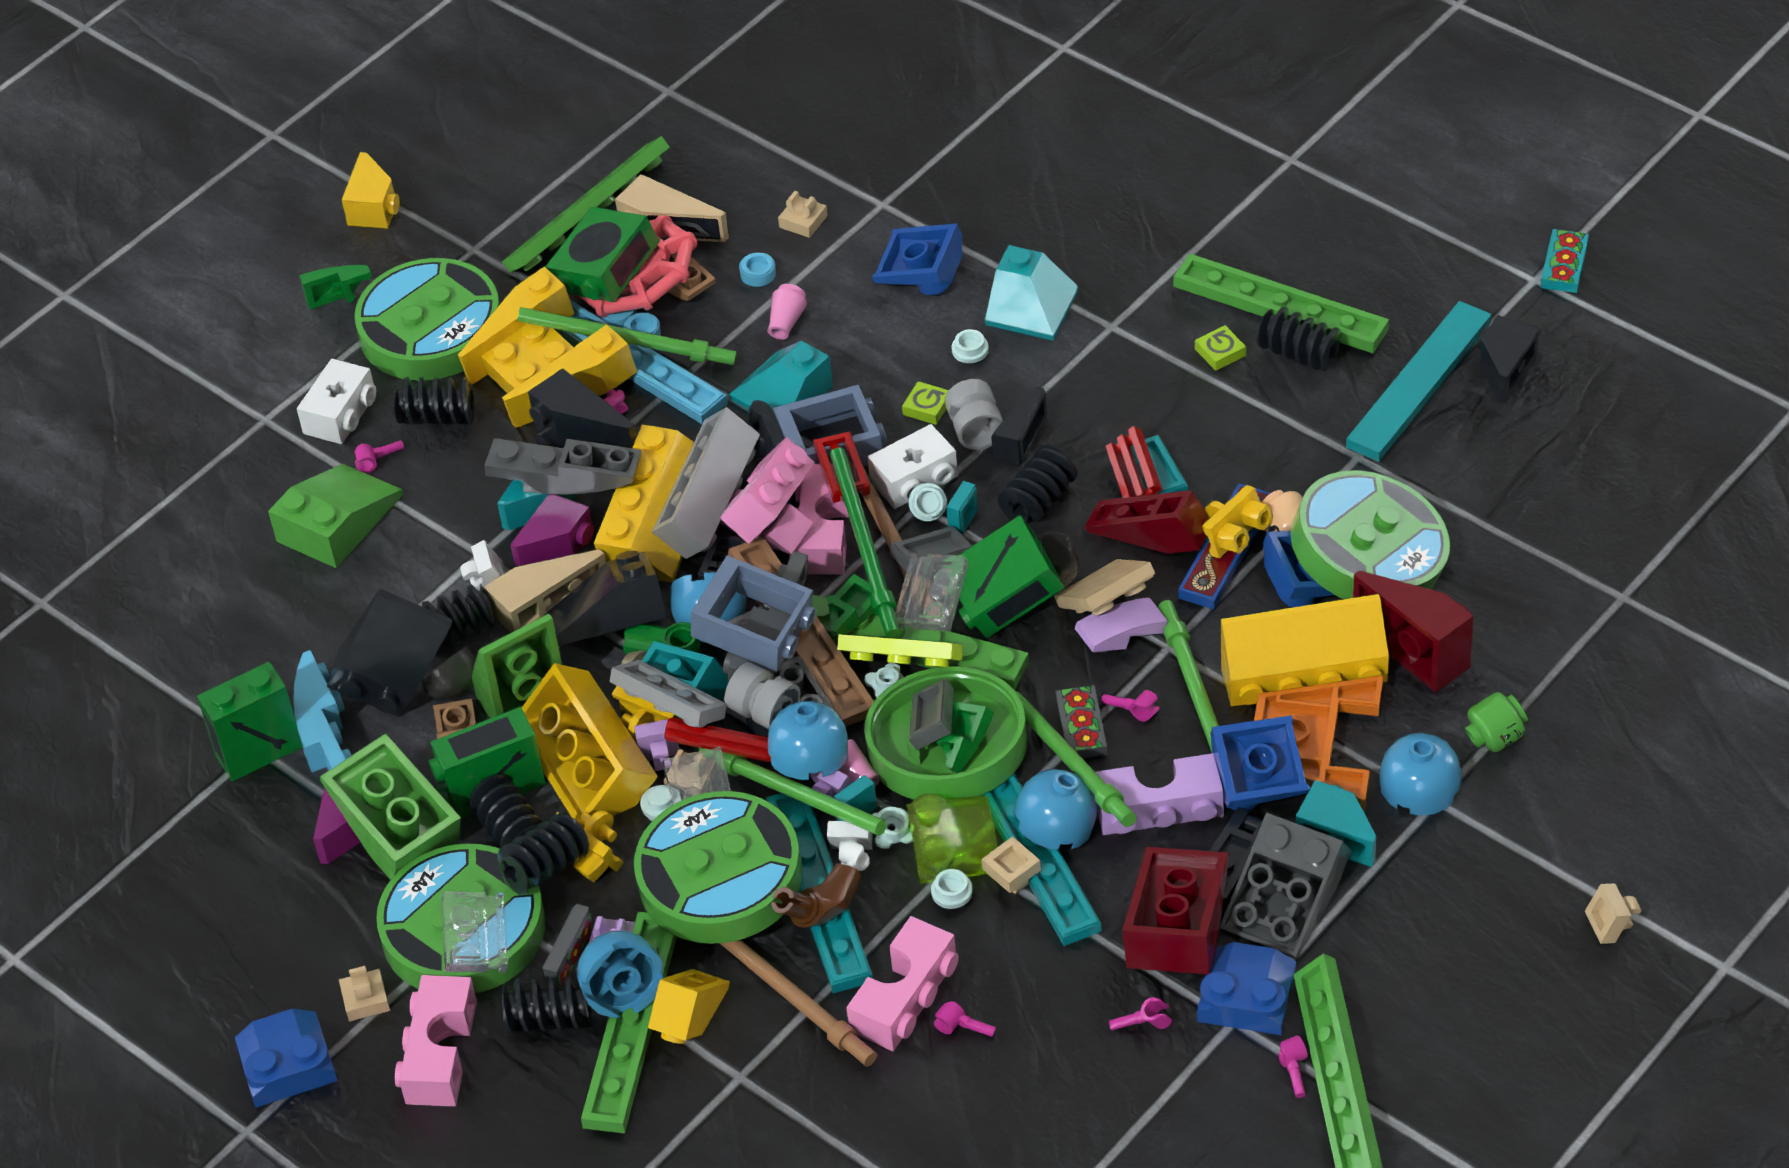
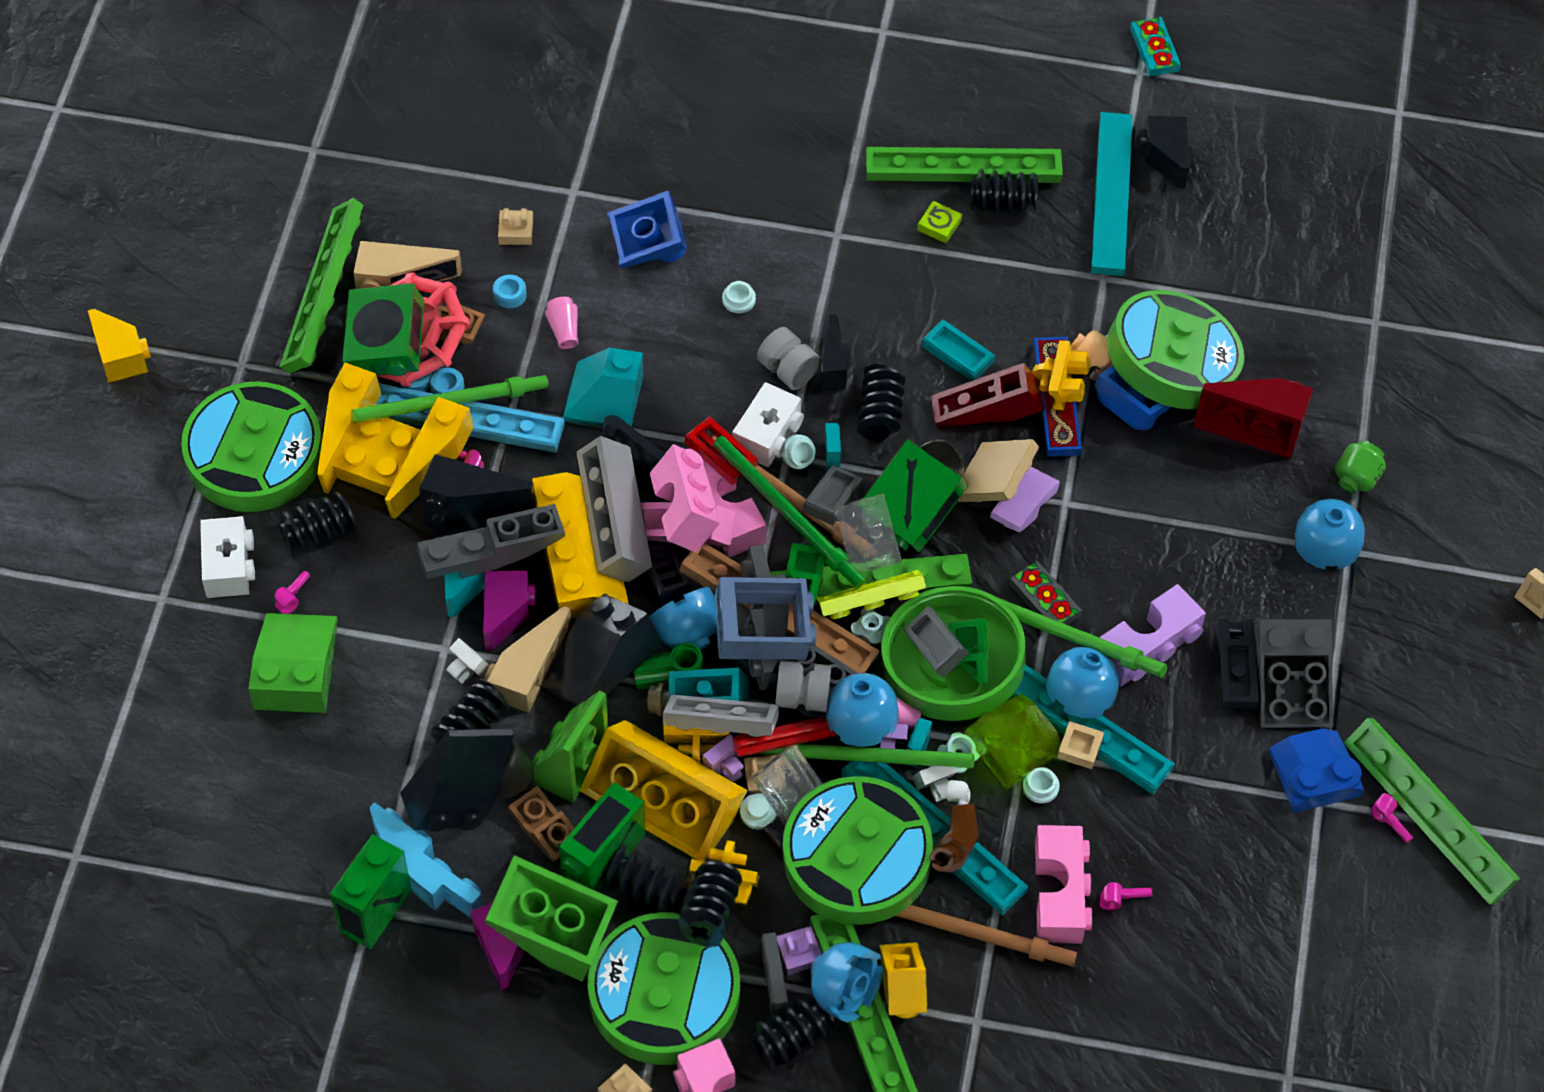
camera: 35 degrees left, 10 degrees up
(332, 284) = (141, 446): green slope -> none
(474, 932) = (700, 998): clear plate -> none
(829, 409) = (690, 388): sand blue window -> none
(925, 403) = (735, 361): lime tile -> none
(1029, 294) = (759, 232): slope -> none
(1127, 470) = (926, 338): red tile -> none
(1141, 708) = (1083, 565): dark pink hand -> none
(1148, 1013) = (1255, 829): dark pink hand -> none
(1176, 910) = (1233, 728): dark red slope -> none
(1178, 638) = (1071, 491): bright green bar -> none
(1258, 762) = (1218, 577): blue slope -> none
(1303, 647) = (1187, 468): yellow slope -> none
(1315, 722) = (1220, 541): orange wing -> none
(1339, 815) = (1299, 597): teal slope -> none

